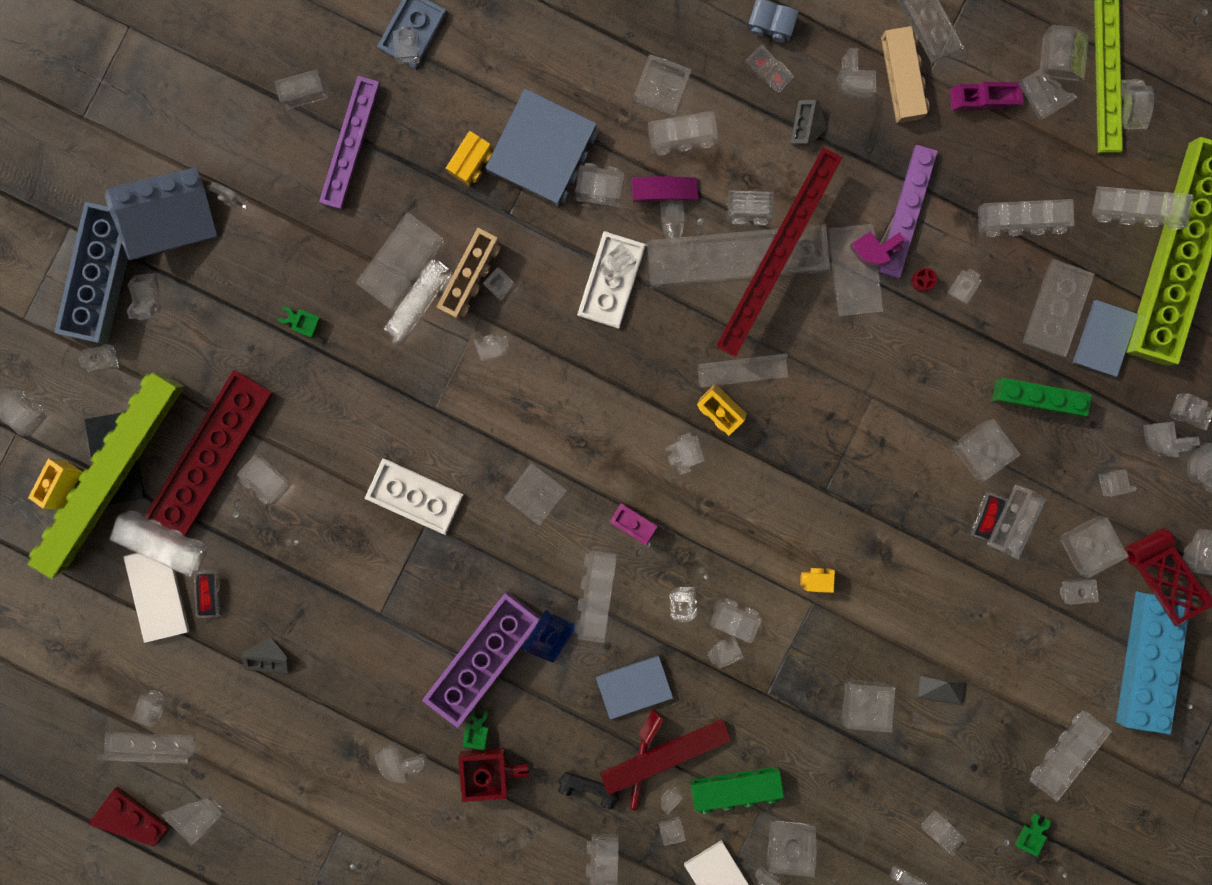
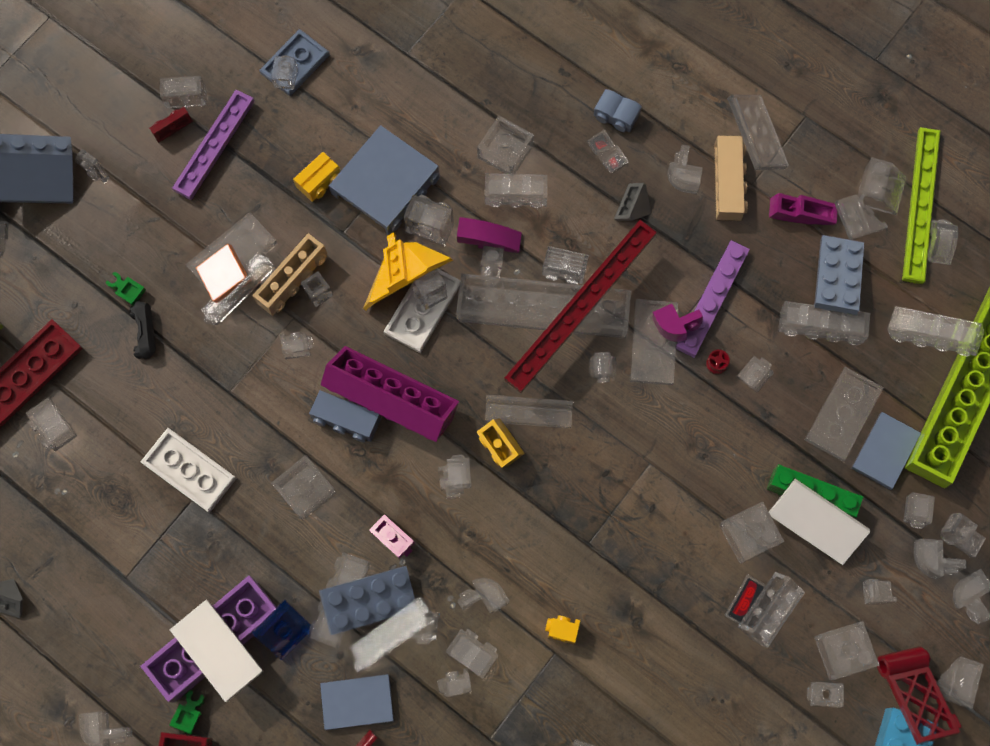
camera: 15 degrees right, 15 degrees down
(303, 123) = (175, 121): none -> dark red plate
(325, 345) = (142, 314): none -> black piece
(398, 288) = (221, 273): none -> tile
(492, 672) = (216, 650): none -> white tile
(558, 412) = (344, 417): none -> sand blue brick
(584, 246) = (401, 266): none -> yellow panel
(600, 381) = (389, 393): none -> magenta brick
(625, 592) = (366, 600): none -> sand blue plate
(655, 619) = (391, 634): none -> clear panel
(736, 558) = (487, 591): none -> clear brick
(809, 308) = (602, 366): none -> clear head
(1035, 162) = (839, 275): none -> sand blue plate
(1050, 427) = (819, 521): none -> white tile
(1145, 394) = (919, 510): none -> clear brick

